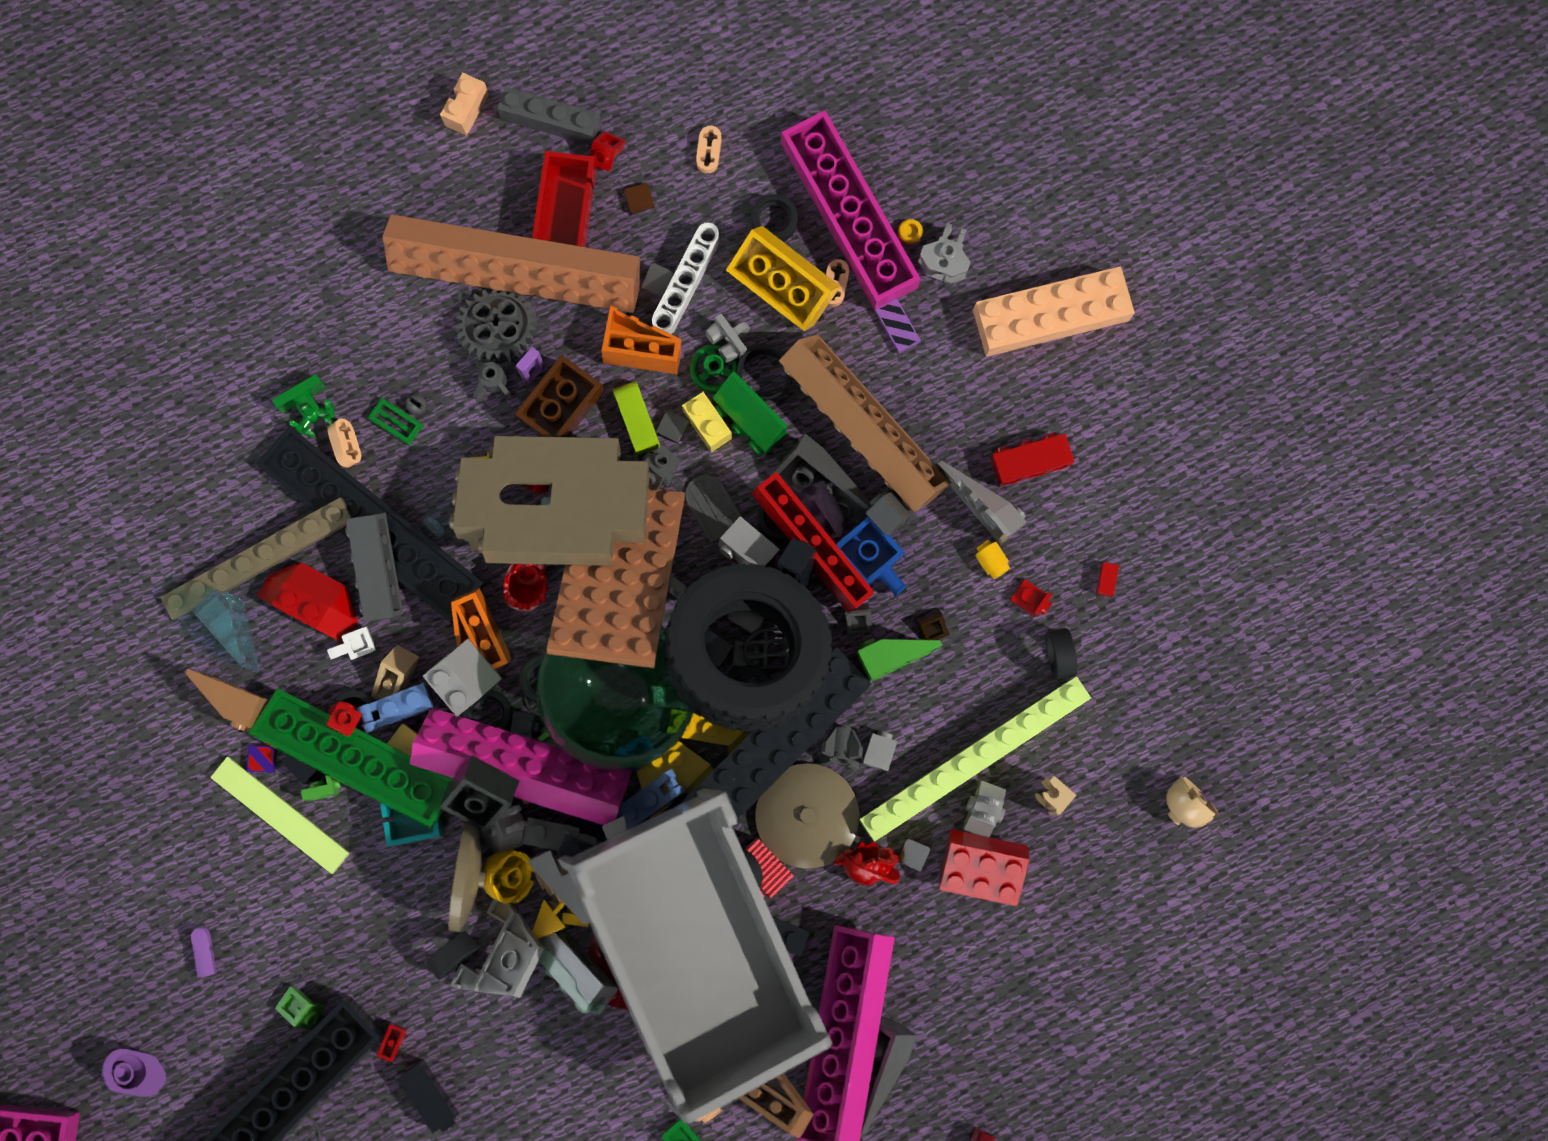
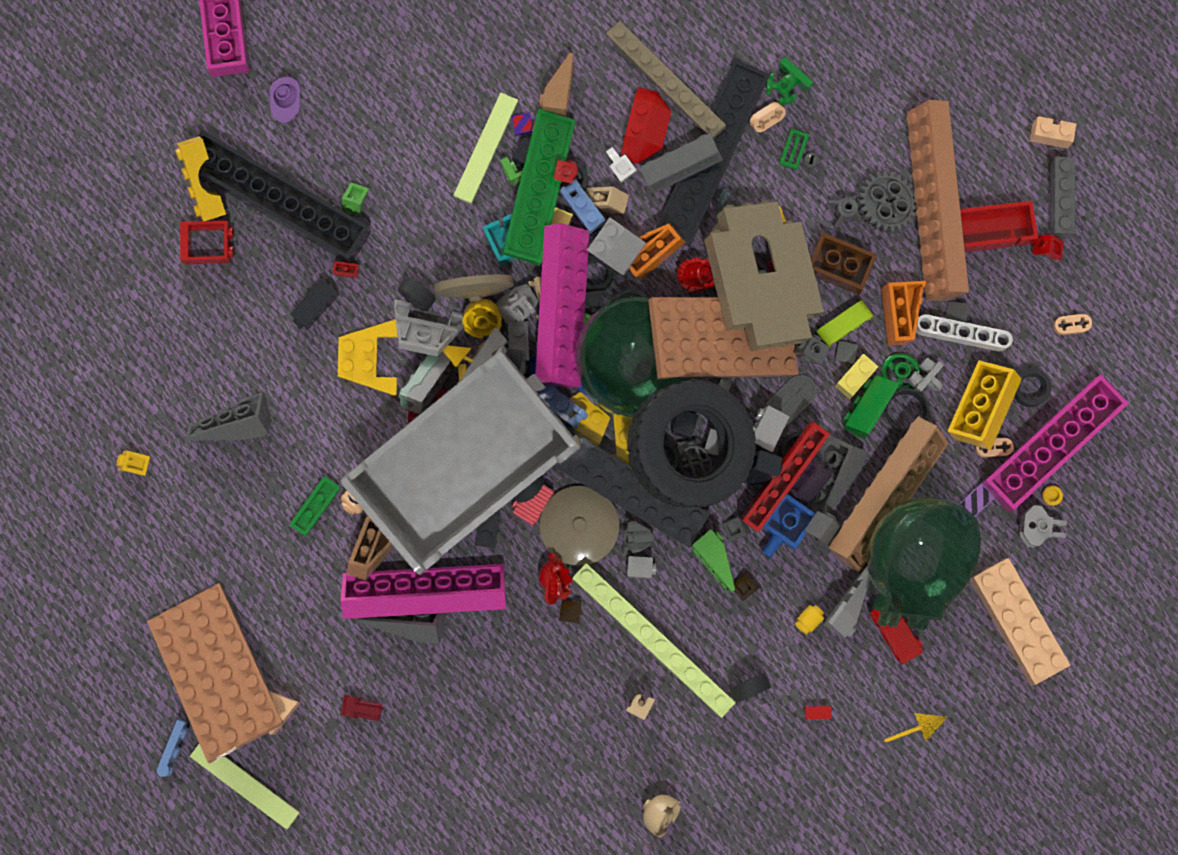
camera: 80 degrees right, 0 degrees up
(203, 952) = (377, 123): medium lavender bar -> none
(230, 626) = (611, 75): clear light blue slope -> none
(479, 793) = (535, 279): pearl dark grey brick -> none
(513, 1051) = (359, 357): none -> yellow wing
(530, 365) = (862, 234): medium lavender tile -> none
(639, 198) = (1018, 282): reddish brown tile -> none
(948, 370) = (928, 532): none -> clear green windscreen
(984, 867) = (573, 665): brick -> none
(985, 809) = (617, 656): light grey hinge -> none
(1031, 599) = (787, 657): red bracket -> none
(1150, 462) = (920, 727): none -> yellow piece

